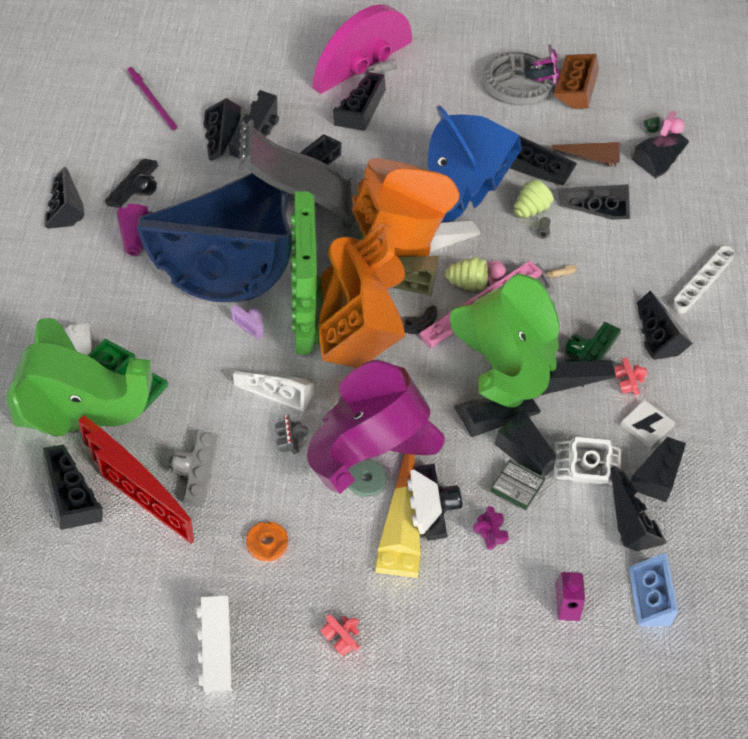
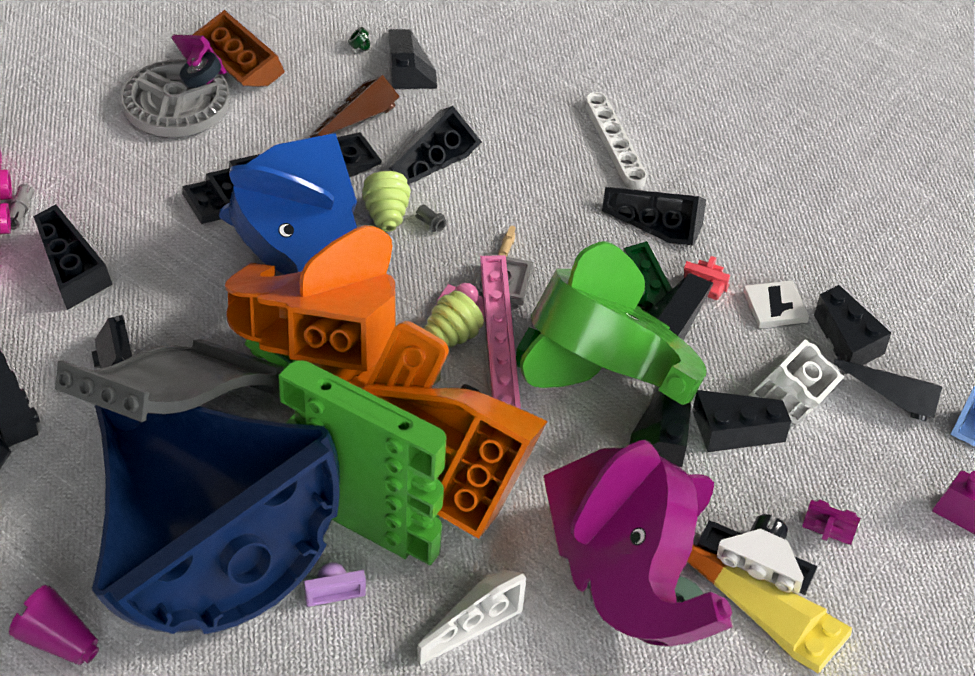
camera: 55 degrees left, 5 degrees down
(292, 432) = (569, 649): dark grey hips -> none
(518, 484) = (786, 462): tile -> none
(672, 124) = (381, 24): bright pink tile -> none

